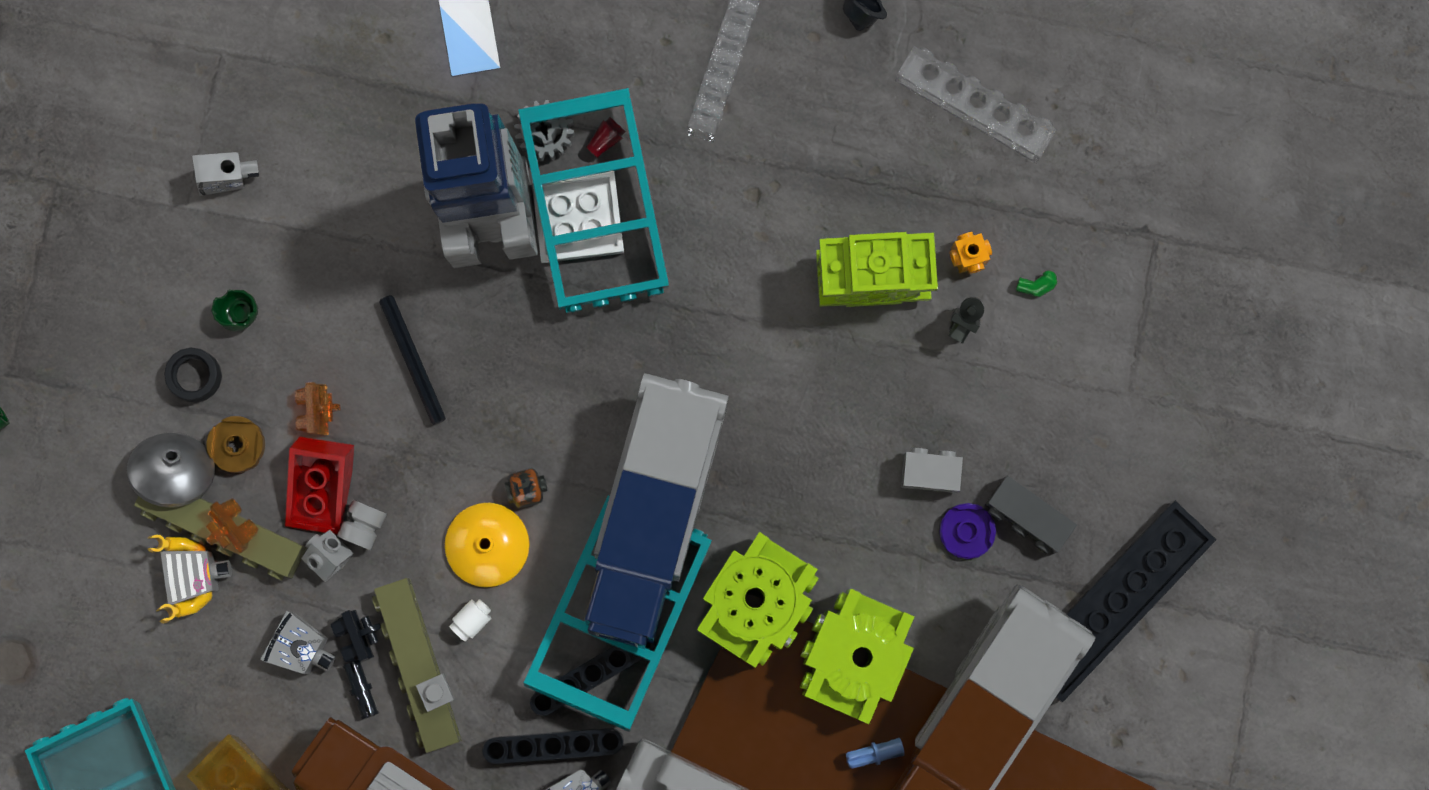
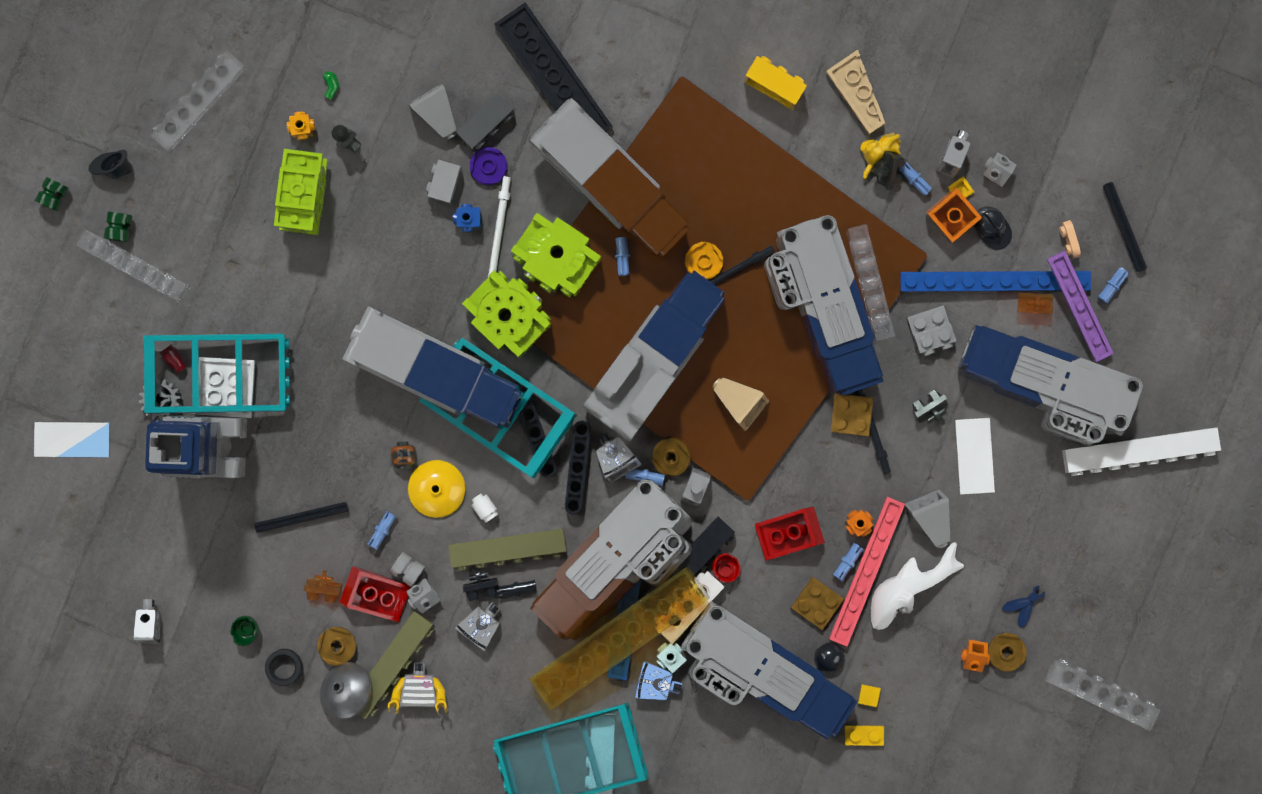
camera: 80 degrees left, 5 degrees up
(238, 535) = (393, 658): clear orange hips -> none
(412, 477) = (382, 530): none -> medium blue pin
(435, 692) = (527, 538): light grey plate -> none
(776, 26) = (118, 226): none -> dark green wheel
(882, 525) = (474, 221): none -> blue brick
(928, 562) = (504, 196): none -> white bar
(1031, 441) = (436, 111): none -> light grey slope

